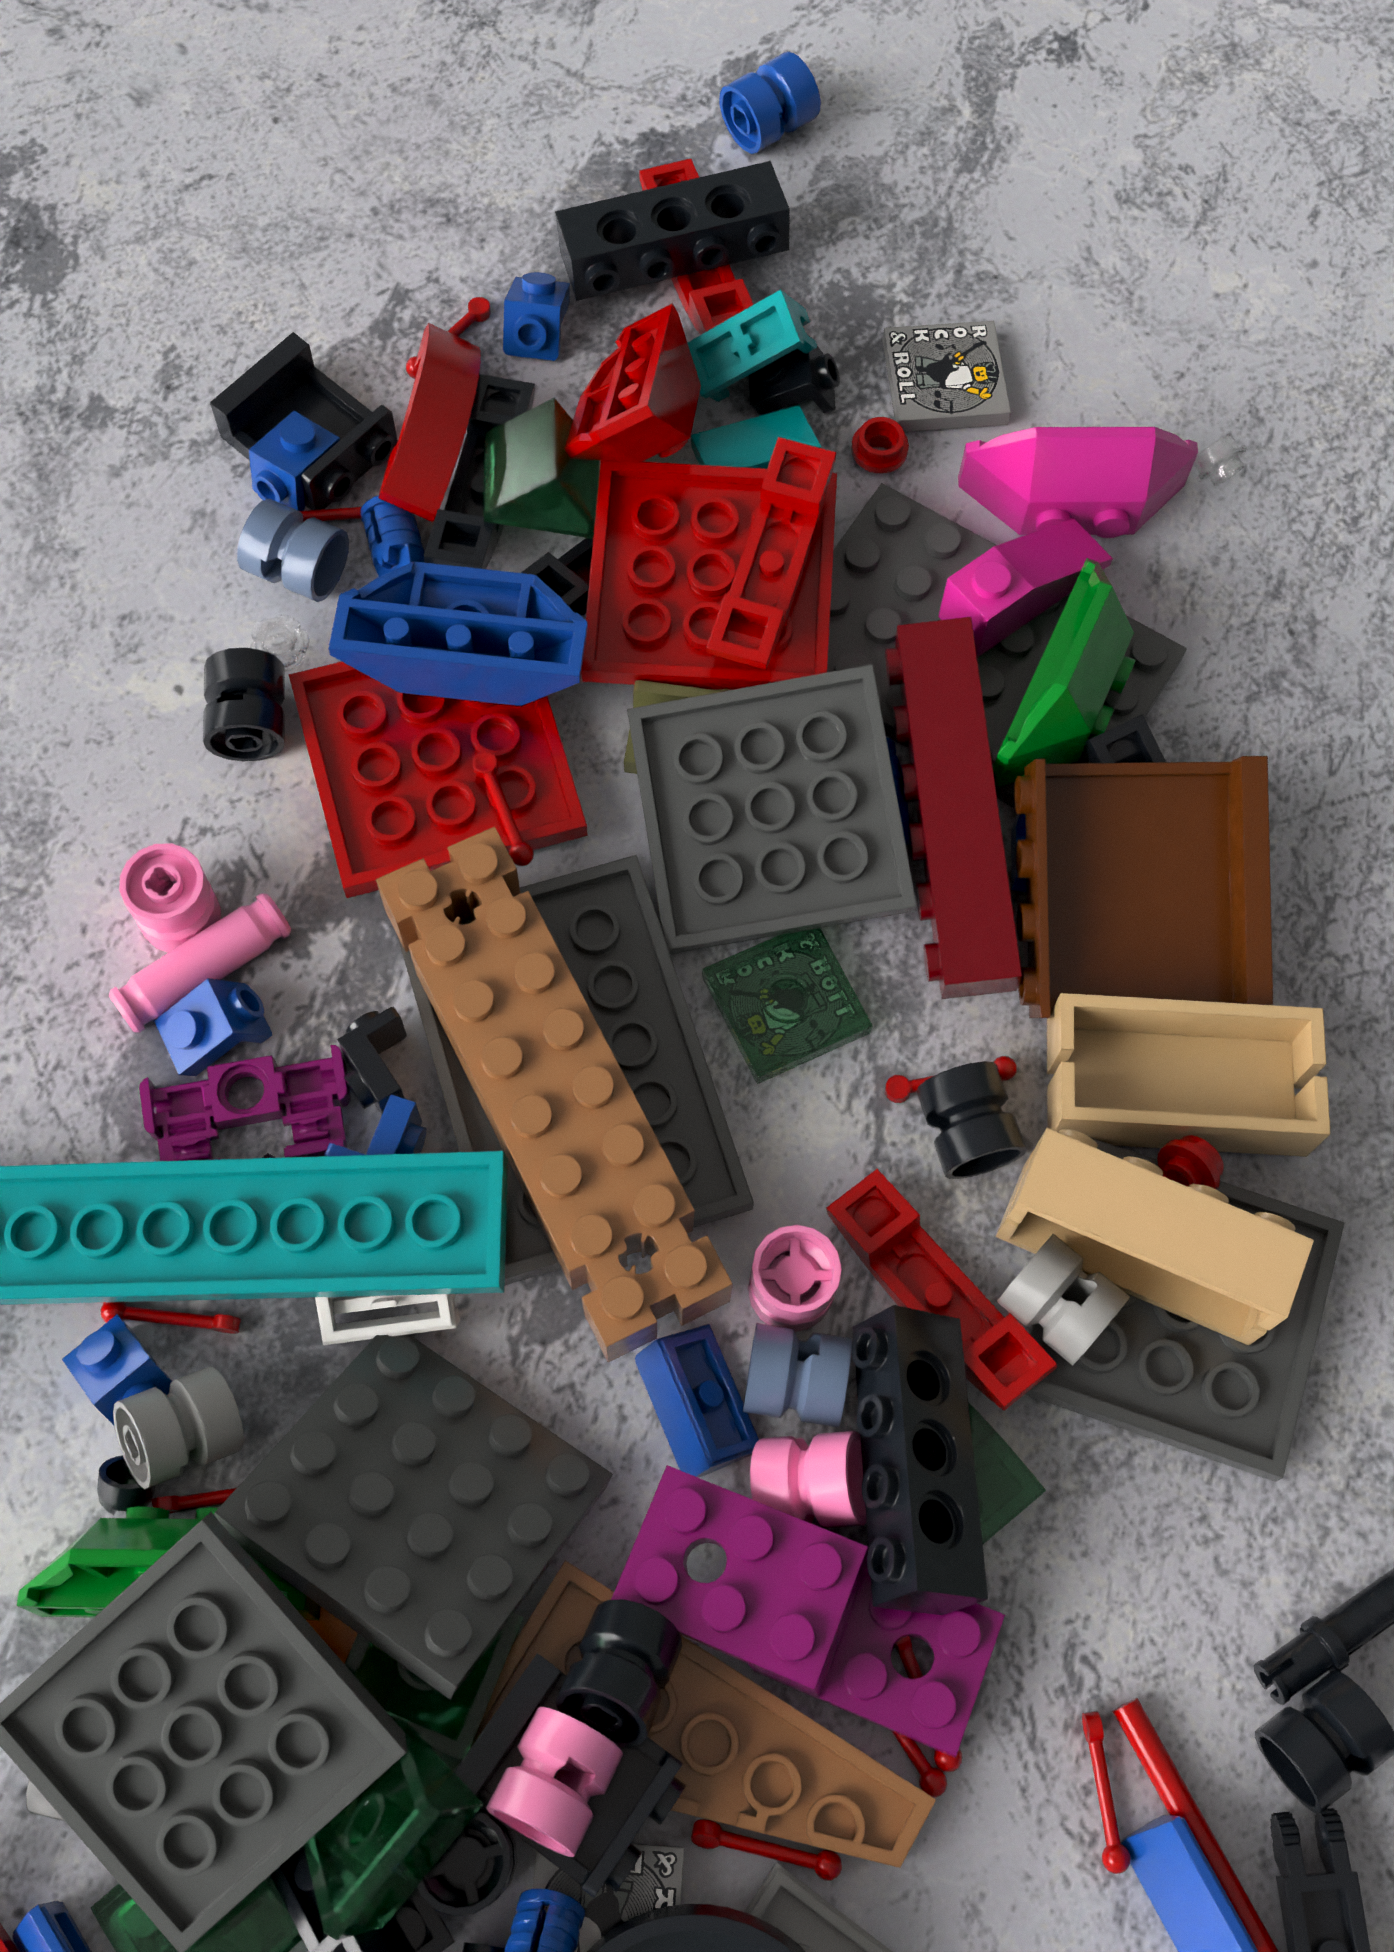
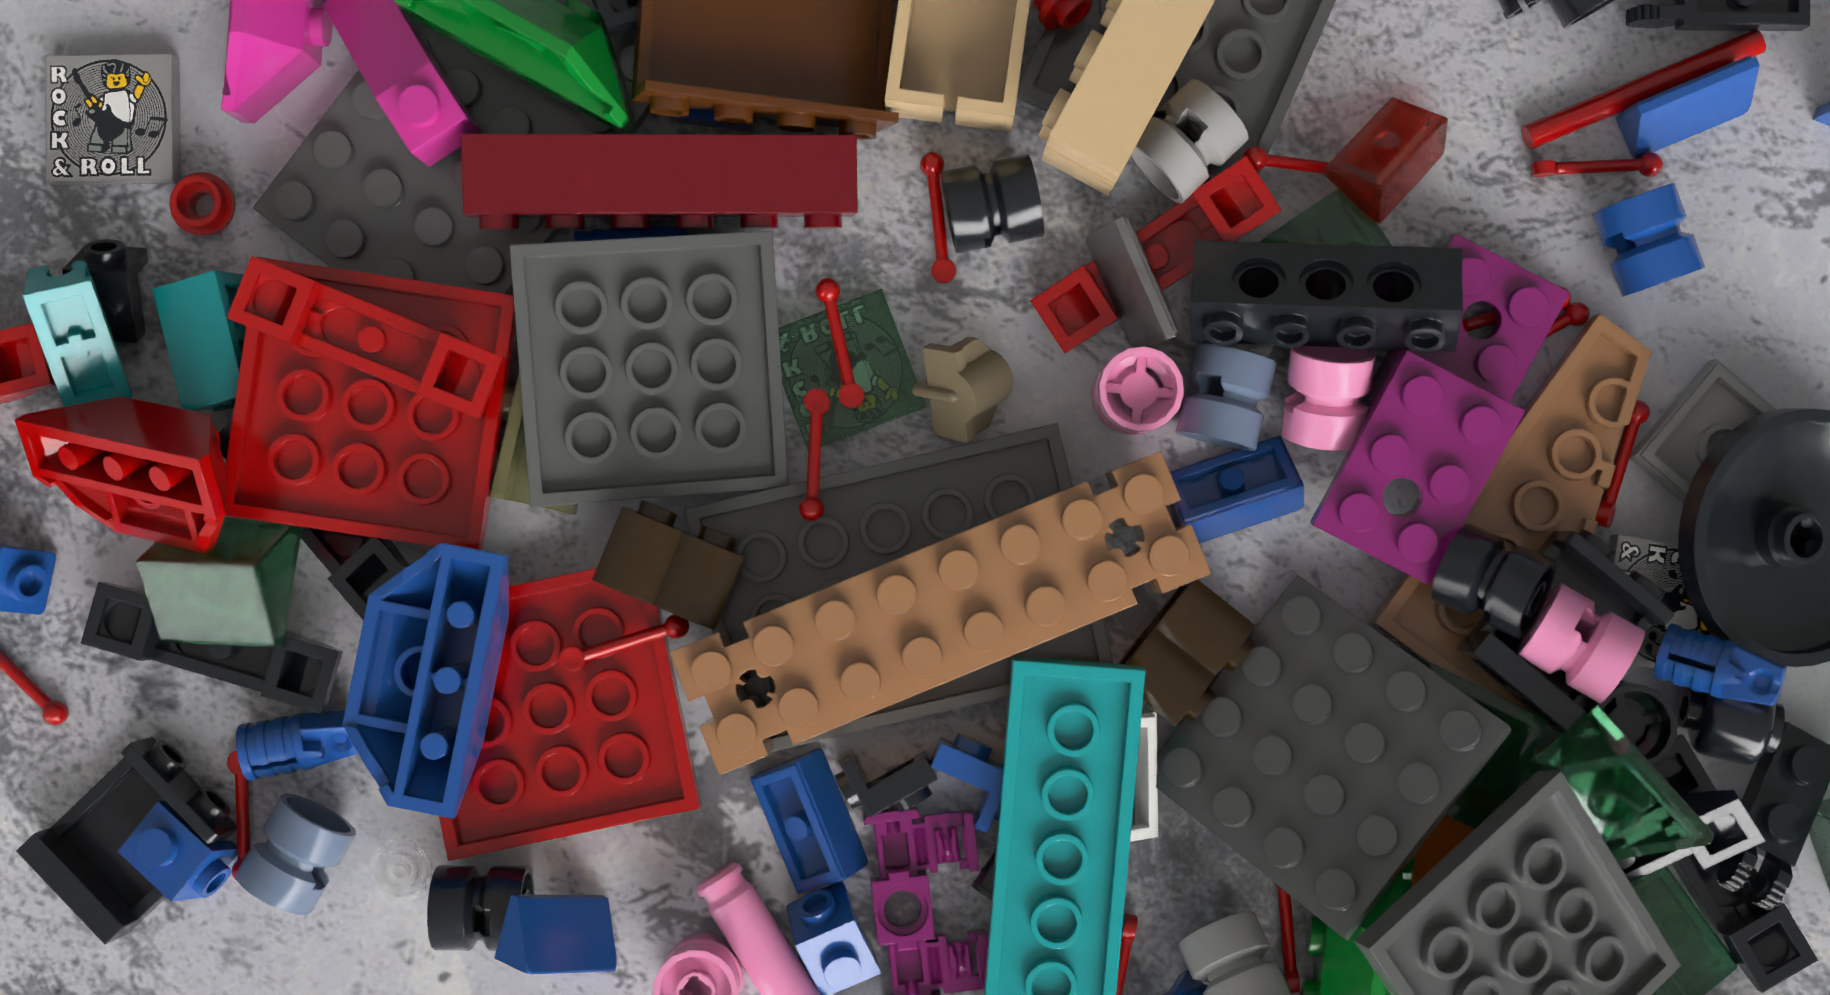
camera: 80 degrees left, 20 degrees up
(218, 765) = (557, 934): none -> blue slope
(325, 1000) = (809, 821): none -> blue slope
(433, 423) = (139, 693): red slope -> none
(524, 1354) = (1187, 648): none -> dark brown brick
(579, 836) = (669, 565): none -> dark brown brick
(750, 970) = (817, 404): none -> red hinge
(763, 1000) = (851, 394): none -> red hinge
(782, 1109) = (963, 387): none -> dark tan piece
(908, 1270) = (1131, 284): none -> flat silver slope
(1028, 1851) = (1648, 239): none -> blue wheel
(1057, 1498) = (1260, 159): none -> red hinge
(1077, 1537) = (1388, 157): none -> clear red slope

